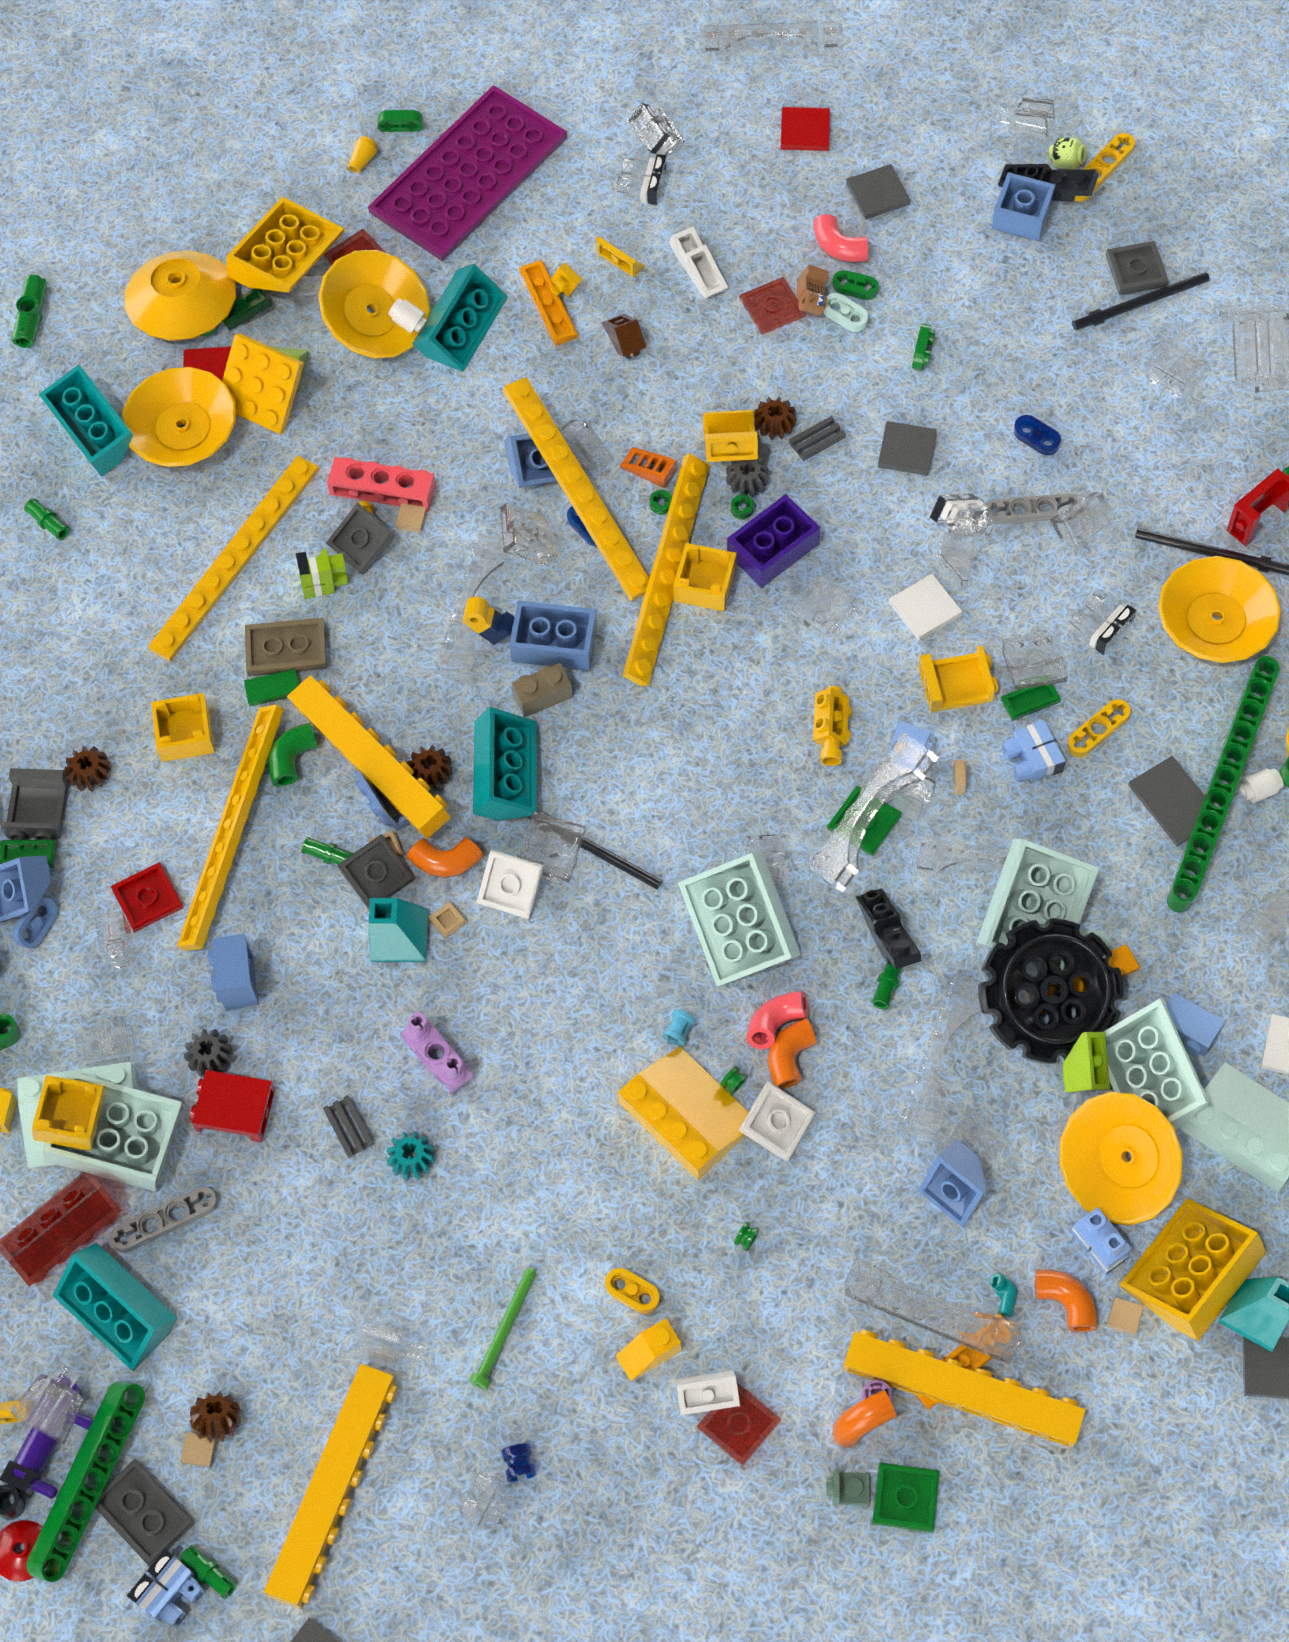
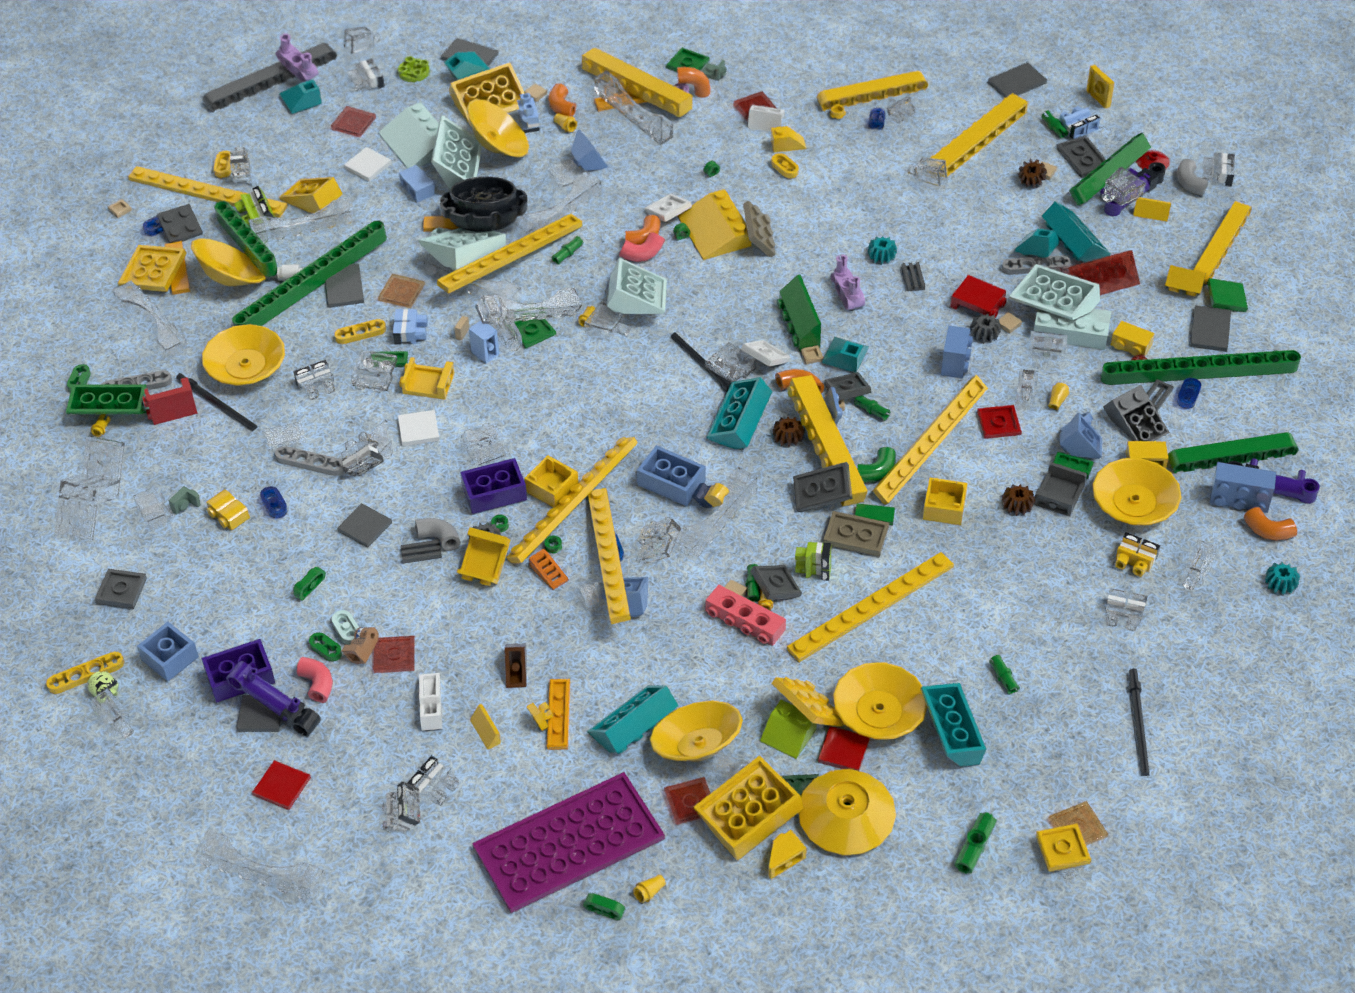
camera: 160 degrees left, 15 degrees down
(68, 1112) = (1079, 288): yellow container -> none
(72, 966) = (1058, 395): none -> yellow cone
(169, 1252) = (1039, 243): none -> teal slope
(177, 1085) = (1009, 322): none -> tan tile
(229, 229) = (785, 853): none -> yellow slope
(347, 680) = (822, 487): none -> dark grey tile
(396, 546) = (752, 585): none -> green pin
(407, 315) = (674, 713): white brick -> none
(481, 1378) = (882, 155): bright green bar -> none
(485, 966) = (799, 314): none -> green slope
(542, 689) = (696, 448): dark tan brick -> none
(548, 1536) = (872, 90): none -> yellow beam
(593, 1453) = (837, 112): none -> yellow plate
(612, 1113) = (759, 228): none -> dark tan plate
(679, 1027) = (699, 262): medium azure bush -> none
(775, 417) = (442, 569): reddish brown gear -> none
(796, 867) = (583, 317): none -> yellow pin
(809, 467) = (438, 529): none -> light grey cylinder
(831, 724) = (522, 375): yellow brick -> none
(842, 188) = (290, 710): none -> dark purple piece
(887, 929) = (553, 261): black slope -> none
(929, 212) = (222, 663): none -> dark purple brick
(960, 924) = (509, 253): none -> yellow plate
(1007, 1293) = (589, 115): teal arm -> none
(1033, 1255) = (567, 123): none -> yellow cone
(1067, 182) = (133, 664): black slope -> none
(1084, 402) = (227, 509): none -> yellow brick
(1087, 820) = (401, 290): none -> clear orange tile
(1087, 1064) = (488, 169): lime slope -> none
(1099, 316) = (173, 567): black bar -> none
(1144, 401) = (182, 499): none -> sand green bracket

